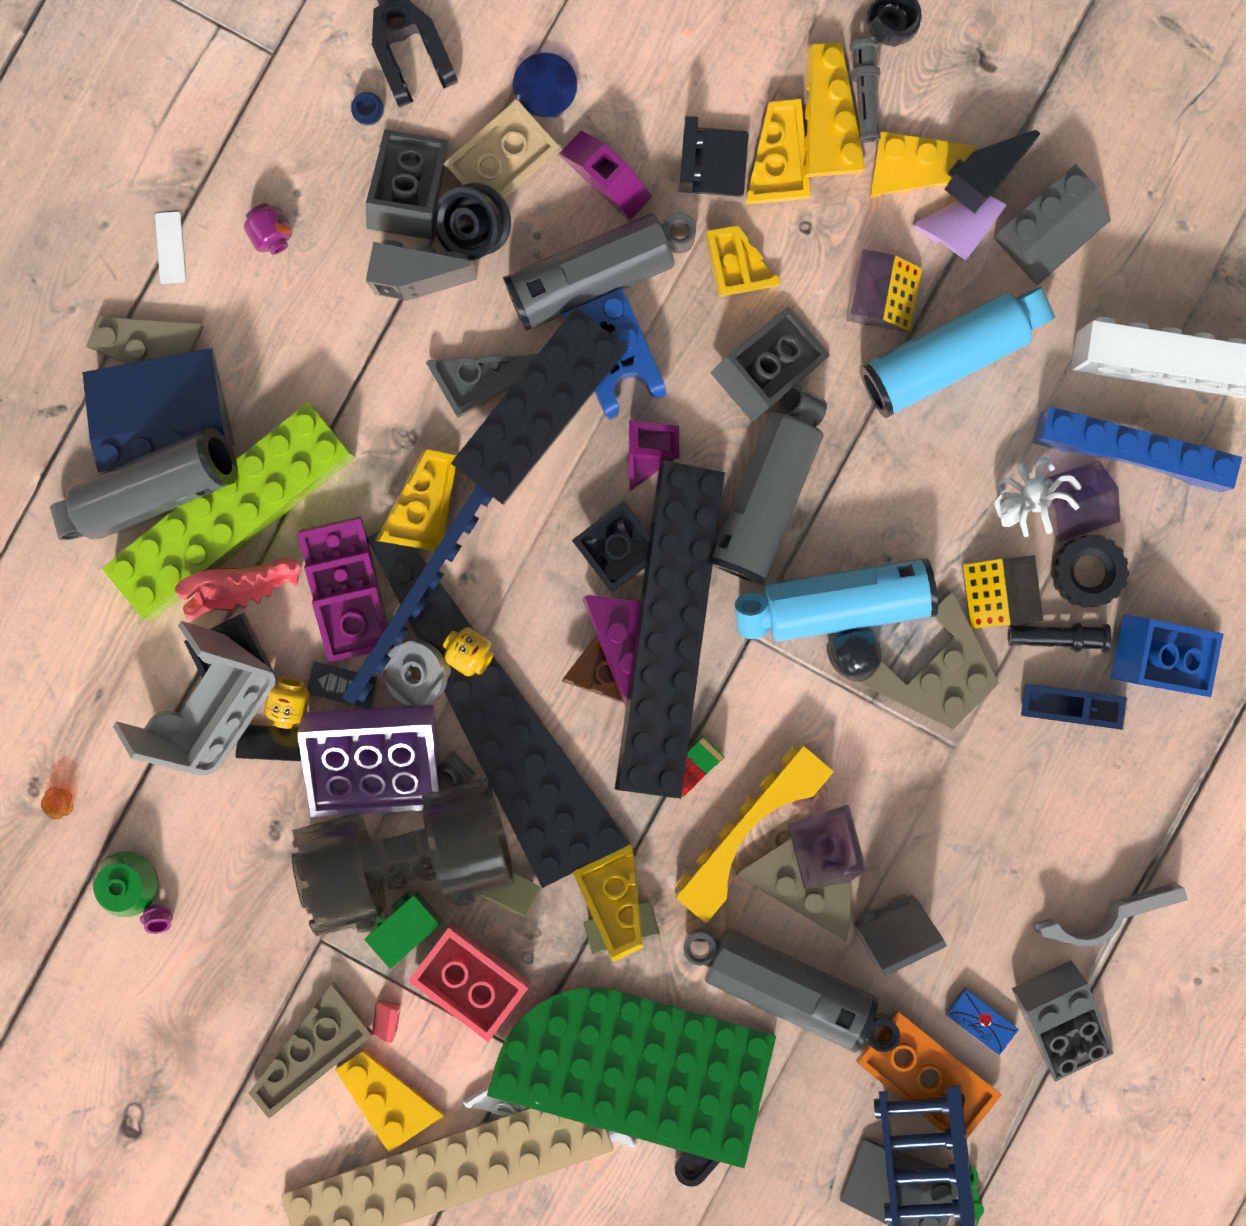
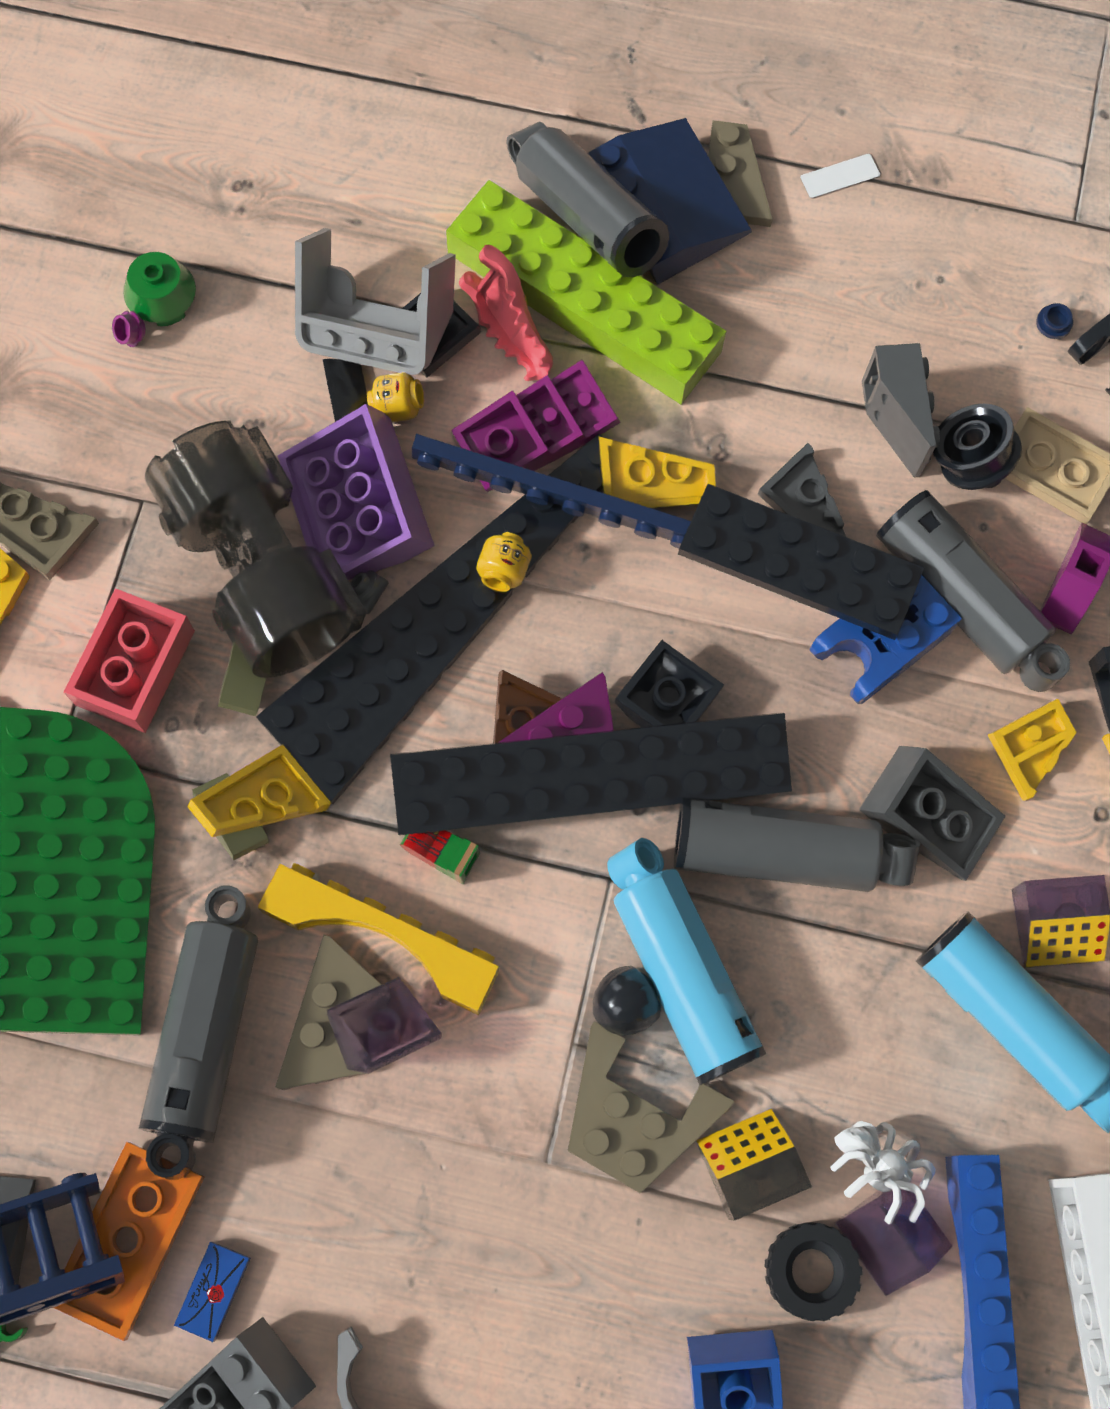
camera: 70 degrees right, 15 degrees down
(48, 803) = (227, 199): clear orange plate -> none
(268, 229) = (893, 256): magenta head -> none
(332, 683) = (435, 427): tile -> none
(386, 1020) = (66, 590): coral slope -> none
(403, 929) = (174, 578): green brick -> none
(406, 184) = (989, 370): dark grey slope -> none
(432, 667) = (467, 533): light grey plate -> none
(648, 446) = (797, 695): magenta slope -> none
(898, 934) = (298, 1141): dark grey slope -> none
(1074, 706) = (639, 1301): dark blue slope -> none
(1075, 636) = (724, 1276): black pin -> none

